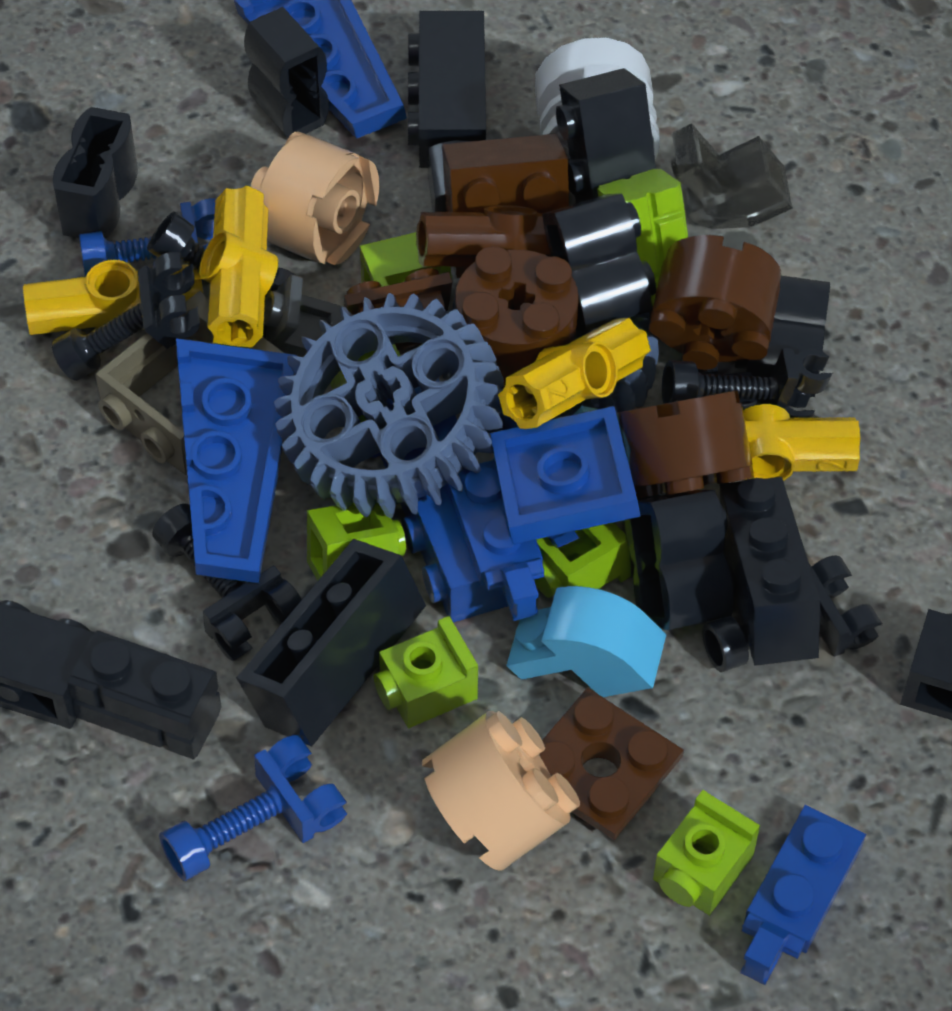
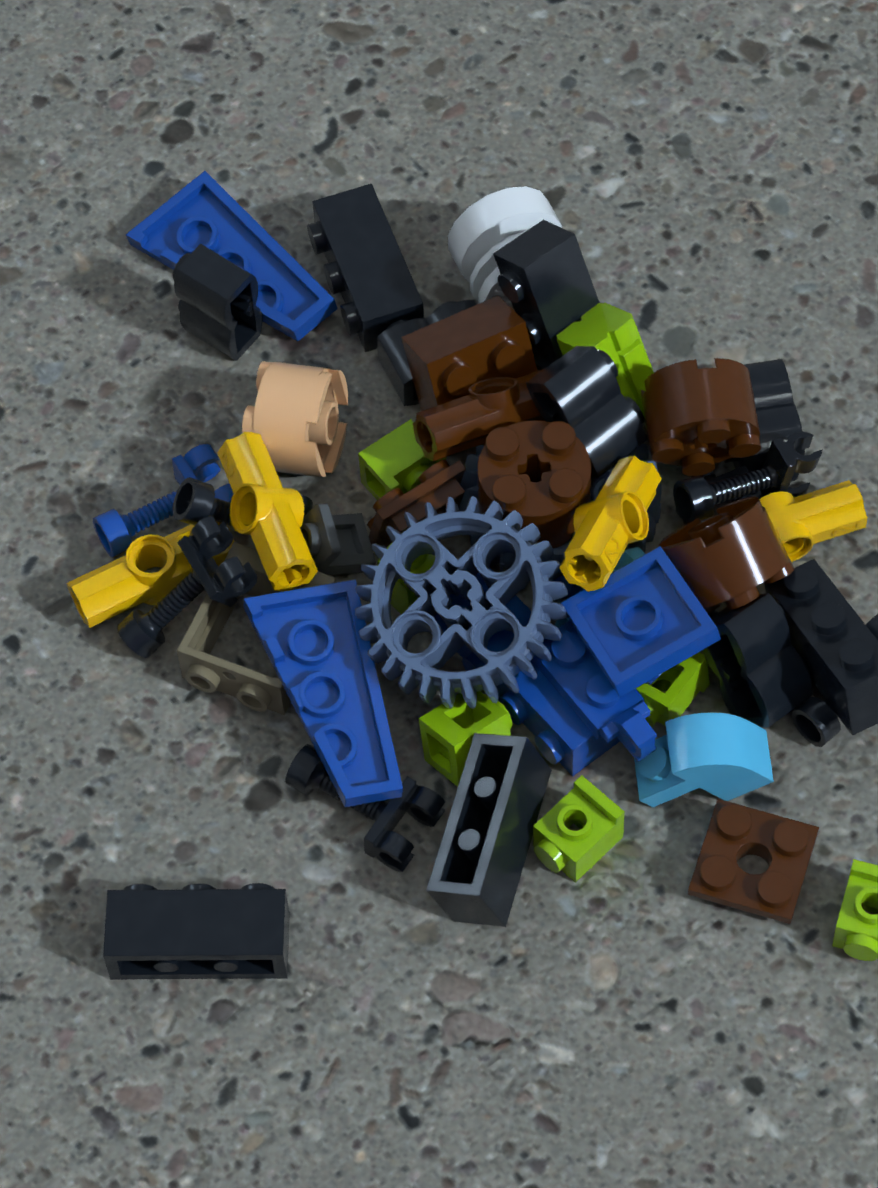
camera: 15 degrees left, 5 degrees up
(95, 173) = (84, 454): black brick -> none
(145, 694) = (346, 928): black brick -> none
(284, 762) = (441, 1049): blue bar -> none
(498, 788) = (688, 914): light nougat brick -> none
(729, 188) = (658, 289): clear smoke brick -> none

